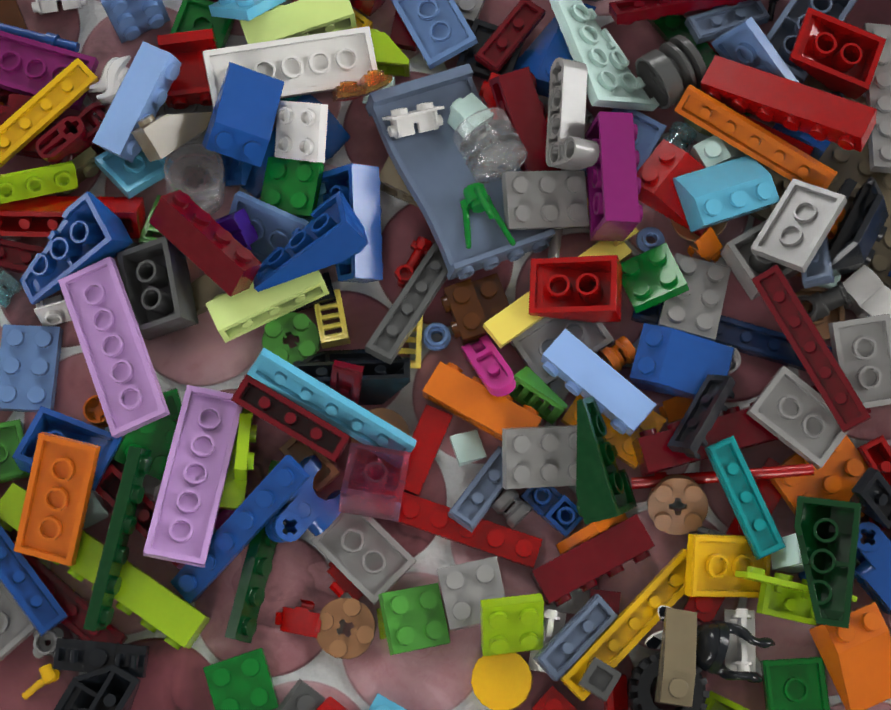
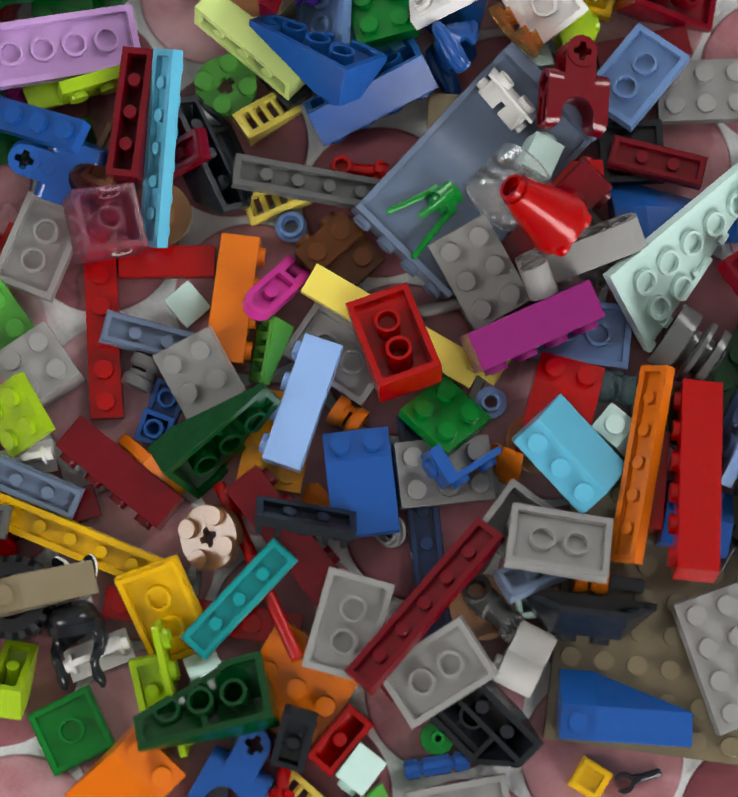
camera: 65 degrees right, 5 degrees up
(351, 146) = (451, 52): none -> blue hair
(427, 60) = (577, 84): none -> dark red piece
(536, 118) = (545, 213): none -> red cone
(701, 292) = (439, 467): none -> blue bracket

